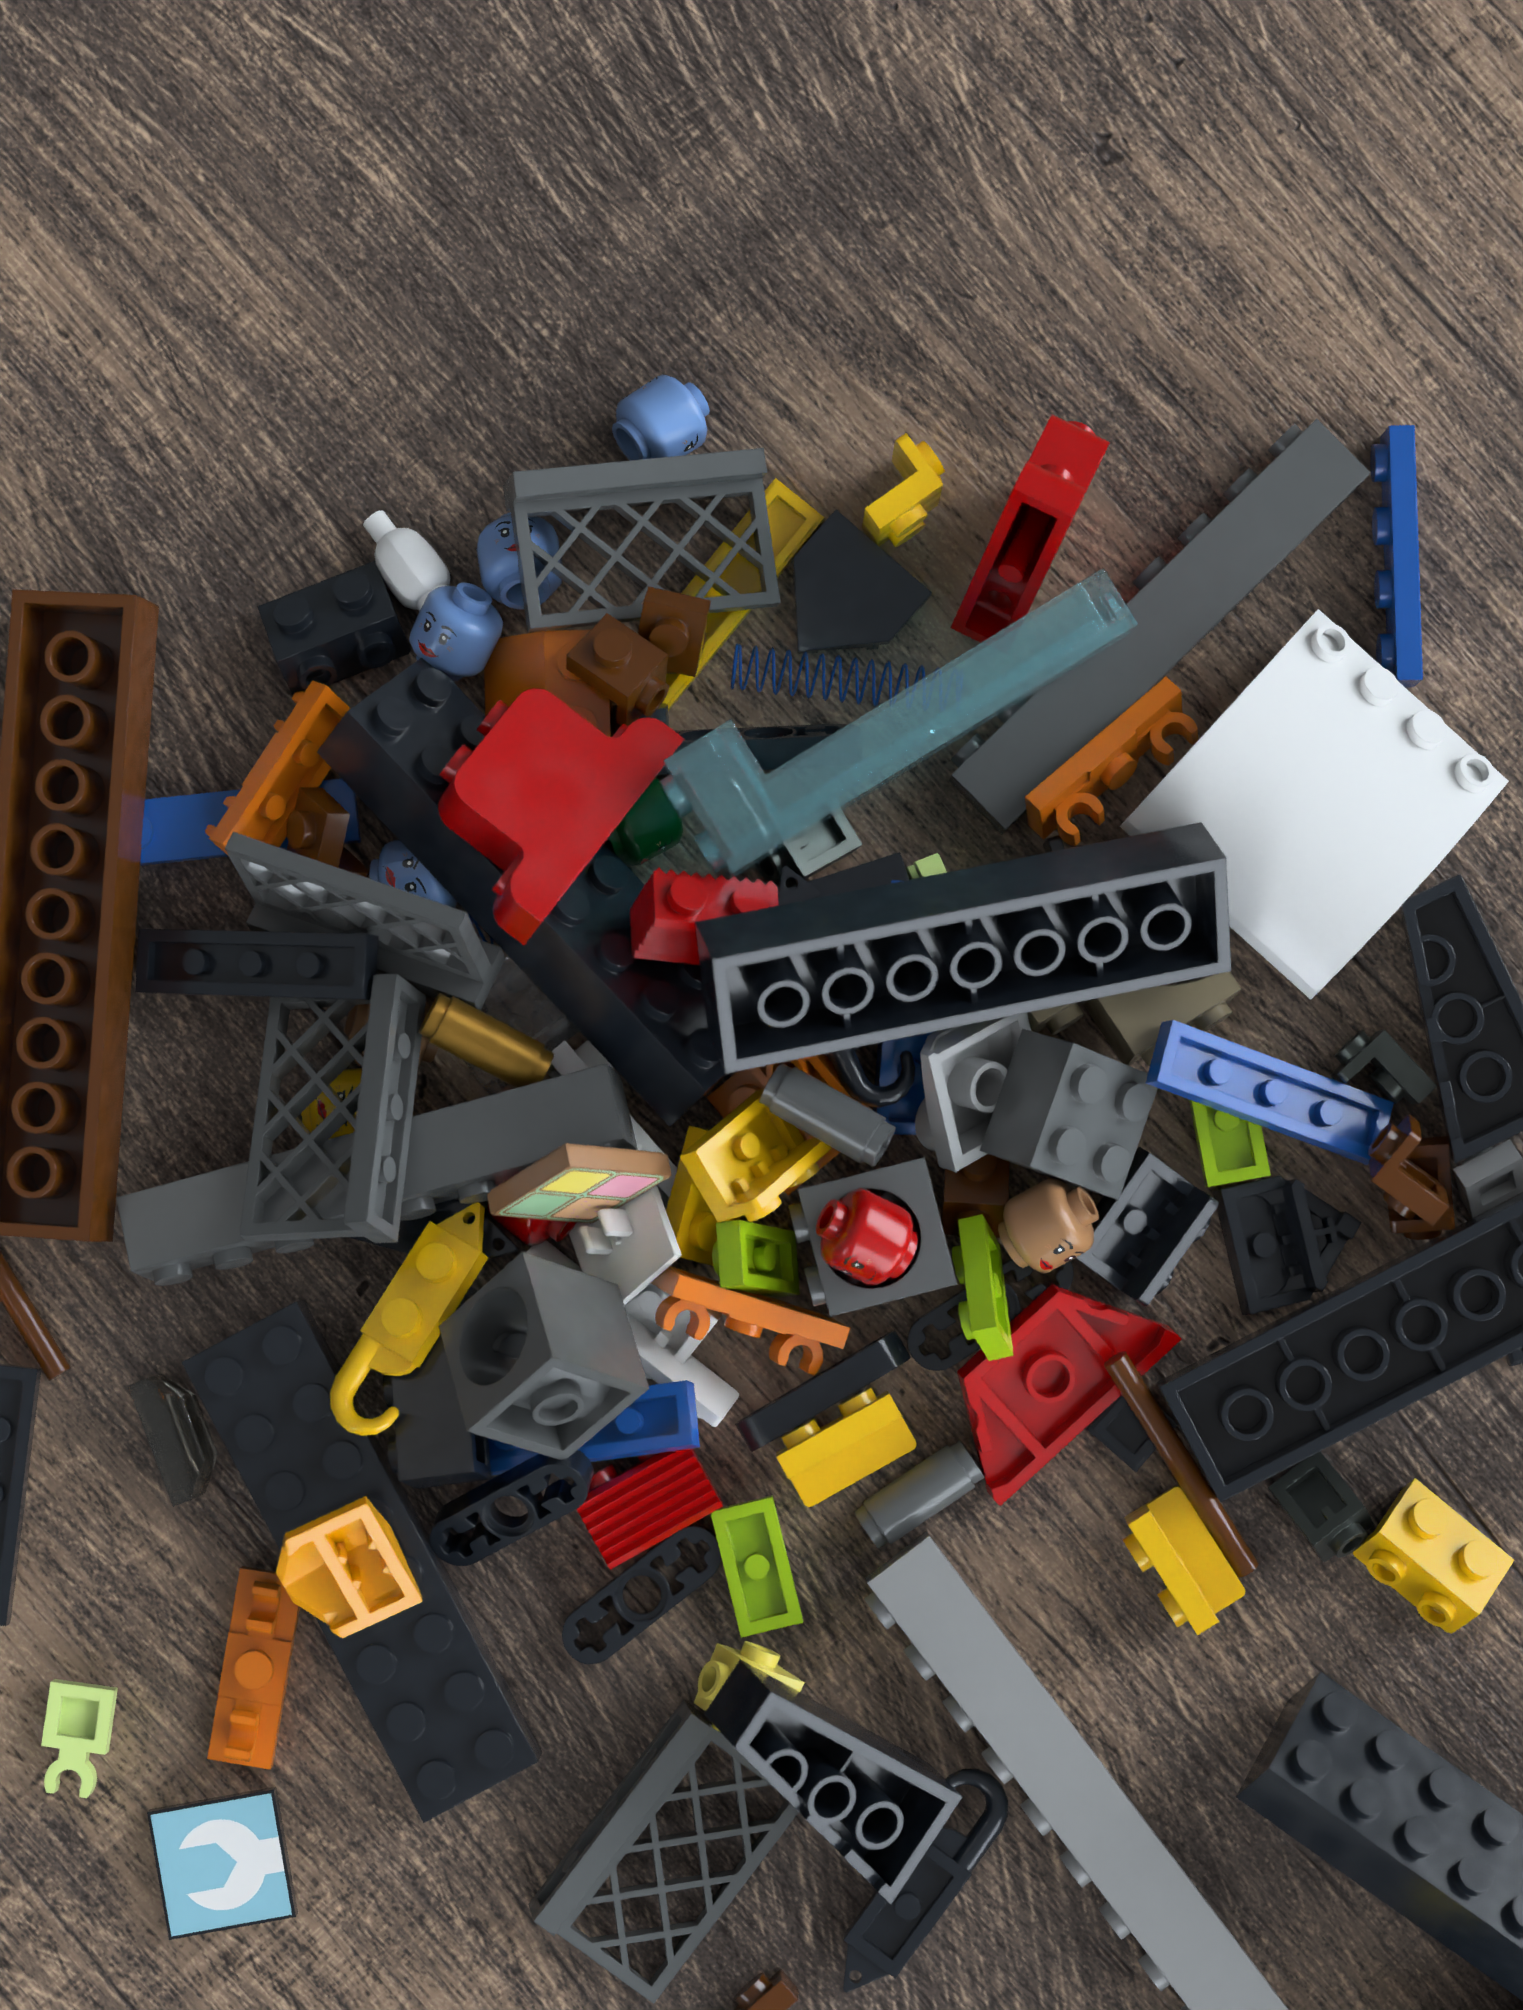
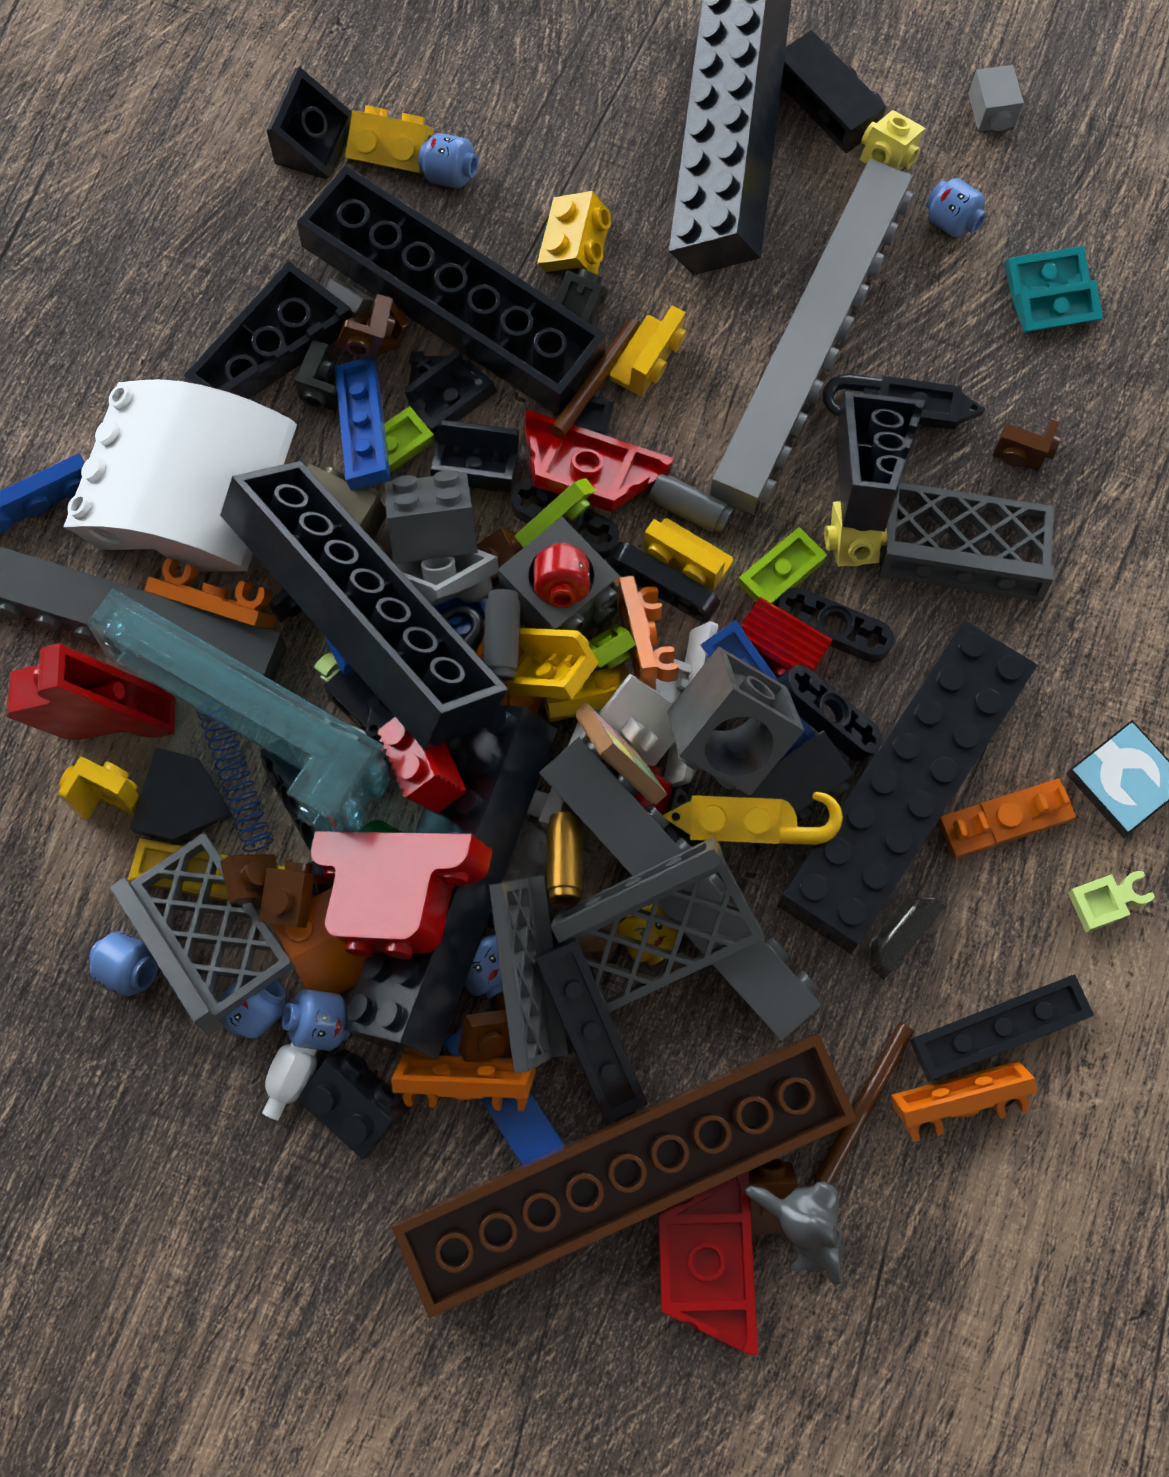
camera: 120 degrees left, 15 degrees down
(347, 1569) = (925, 772): light orange slope -> none
(1048, 1225) = (500, 497): medium nougat head -> none

